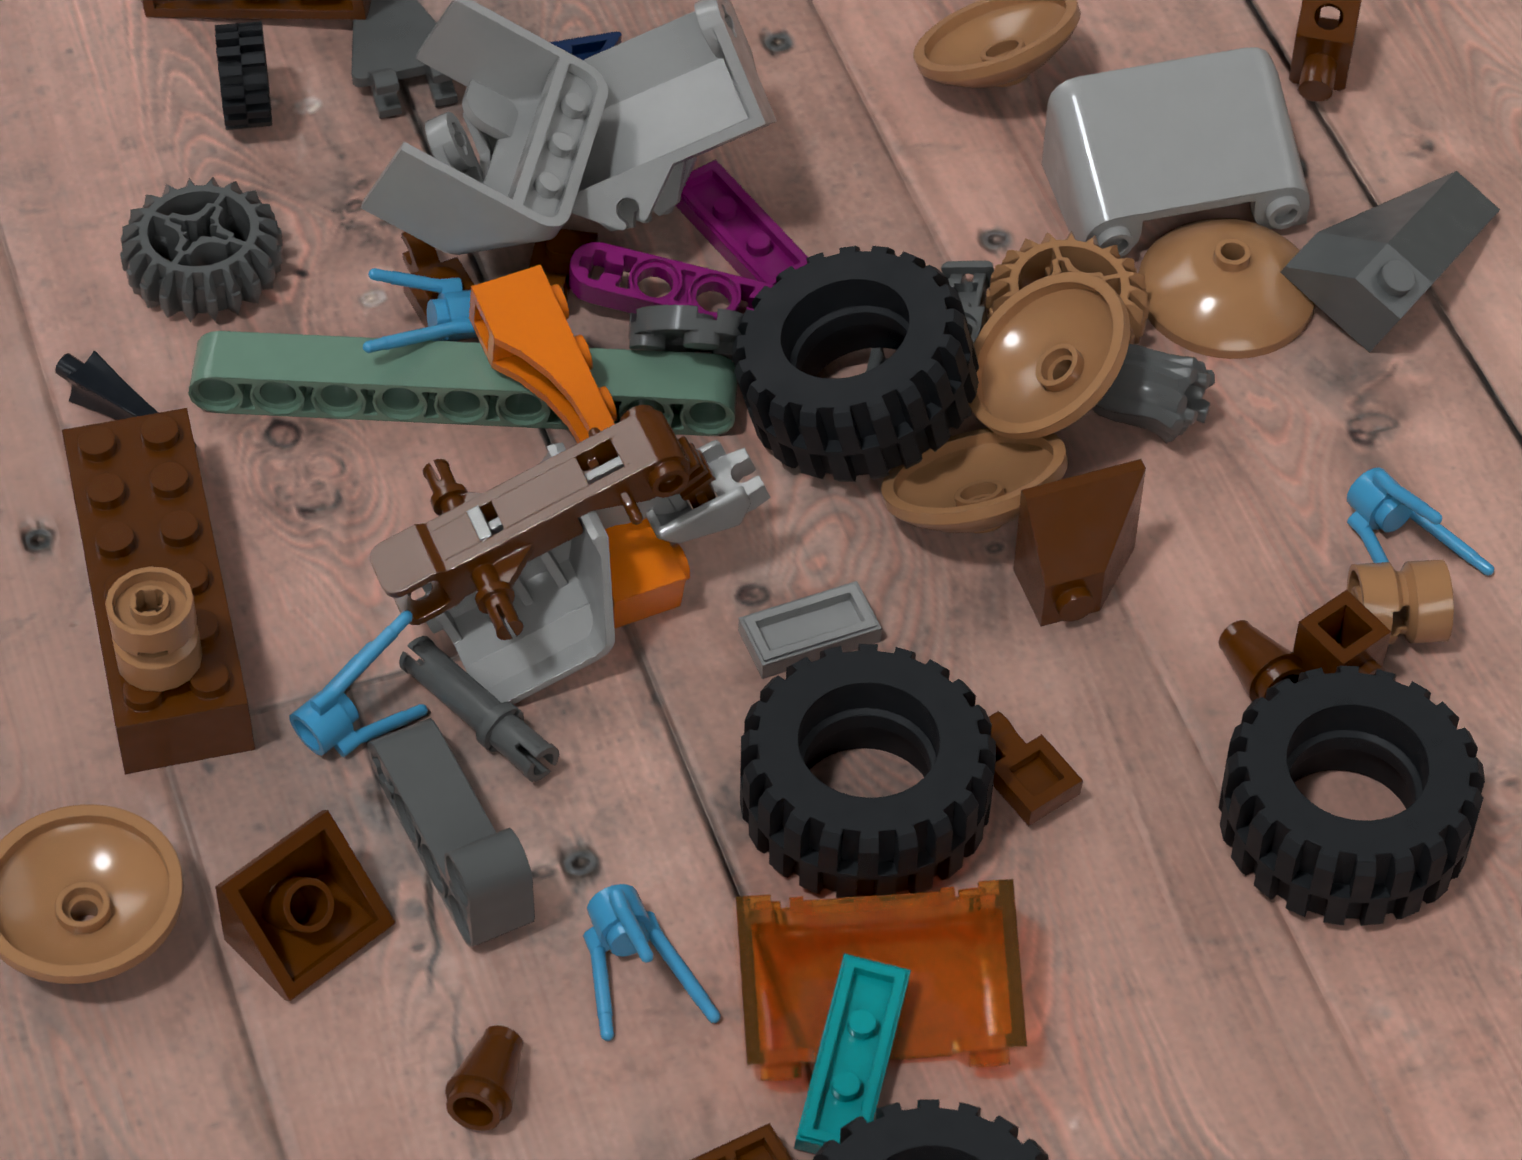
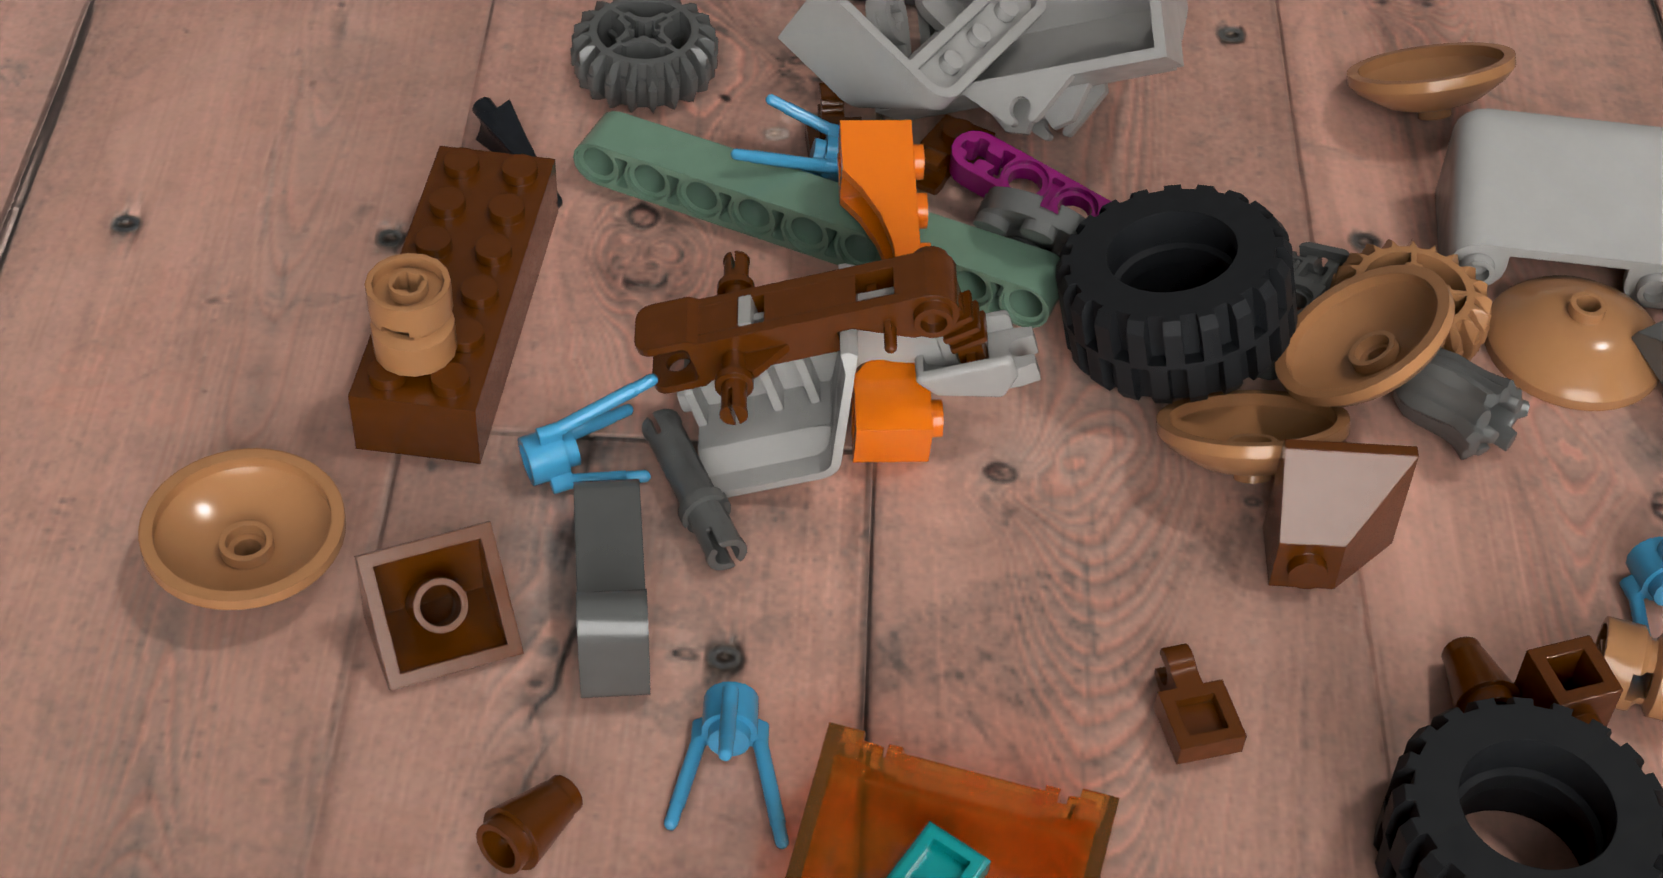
camera: 20 degrees right, 5 degrees down
(737, 225) = (1121, 153): magenta tile -> none
(807, 627) = (1039, 517): light grey tile -> none
(866, 704) = (1042, 591): black tyre -> none

